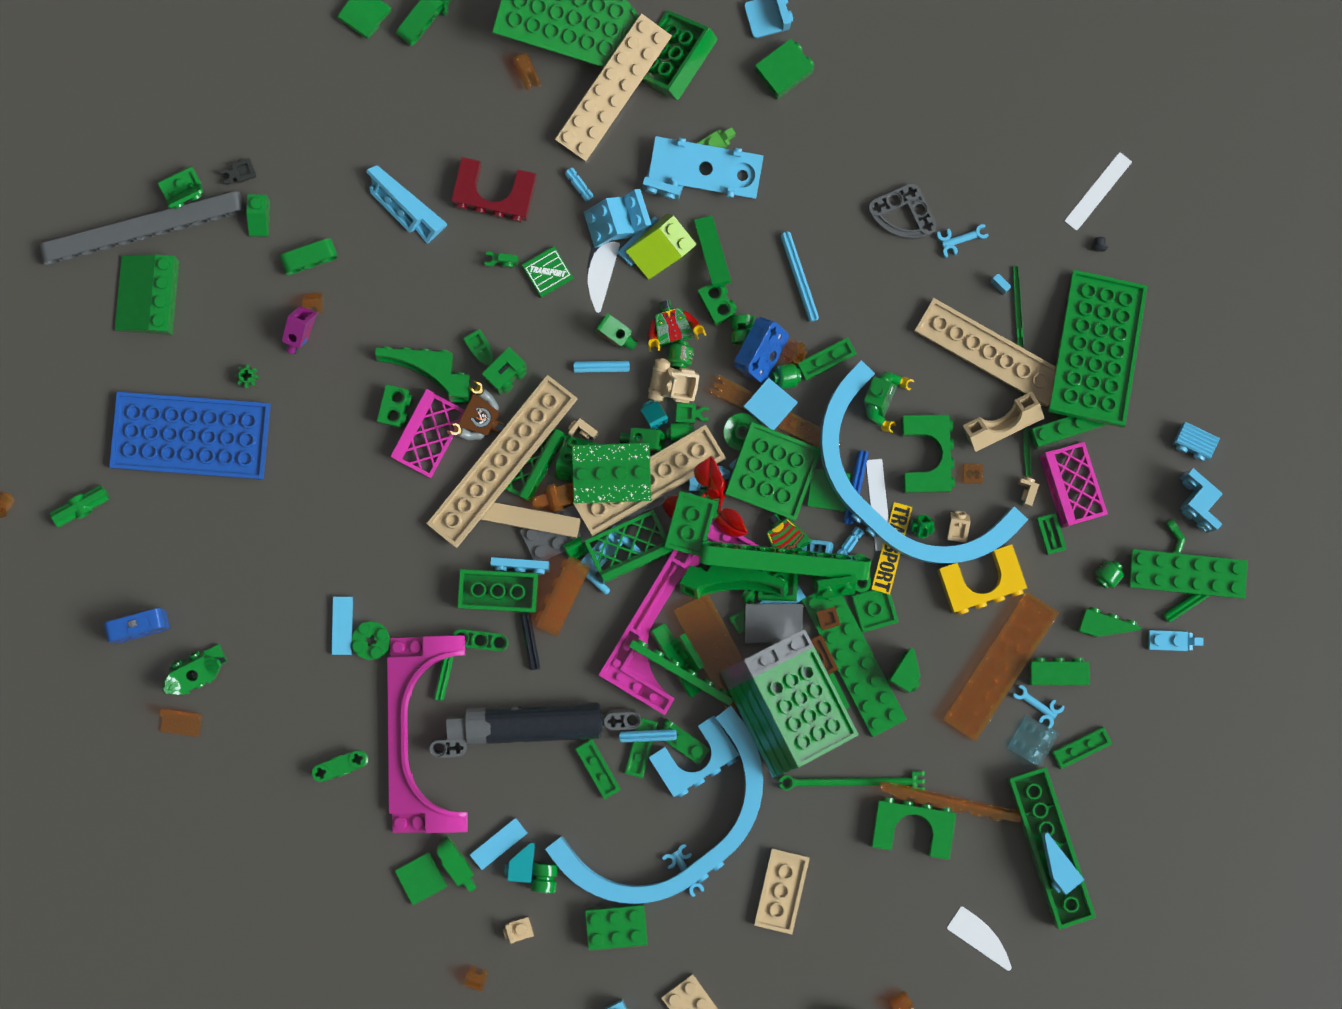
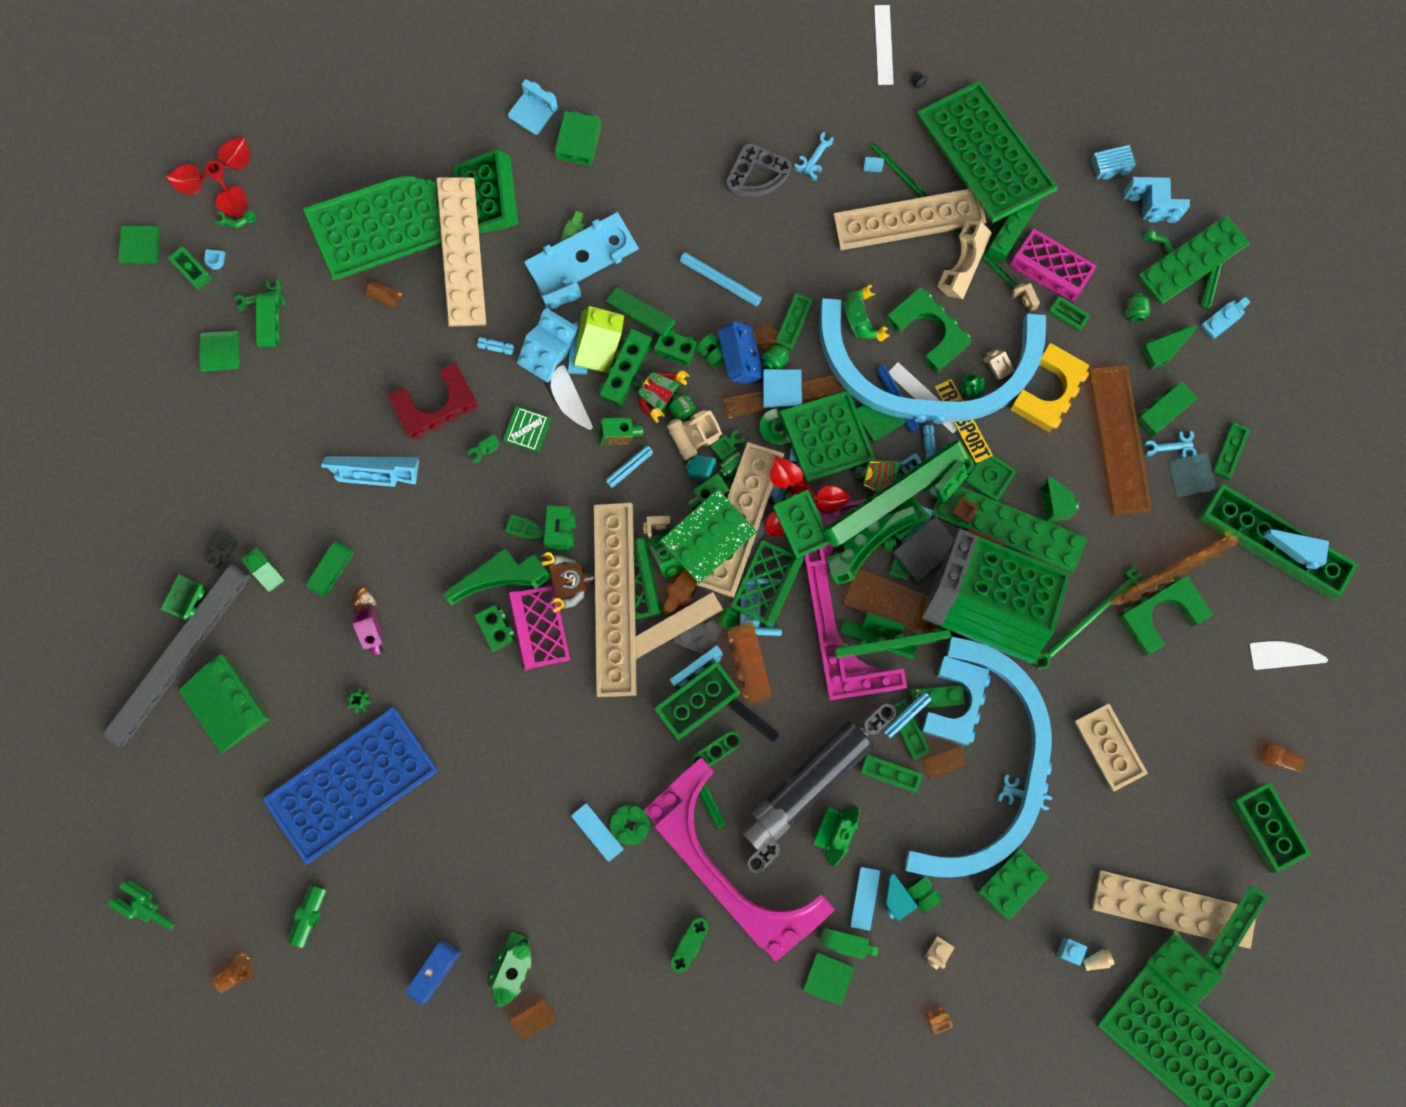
camera: 35 degrees left, 5 degrees down
(519, 776) = (836, 832): none -> green piece
(639, 304) = (633, 340): none -> green brick
(646, 795) = (945, 762): none -> clear orange panel
(972, 473) = (974, 317): clear orange tile -> none

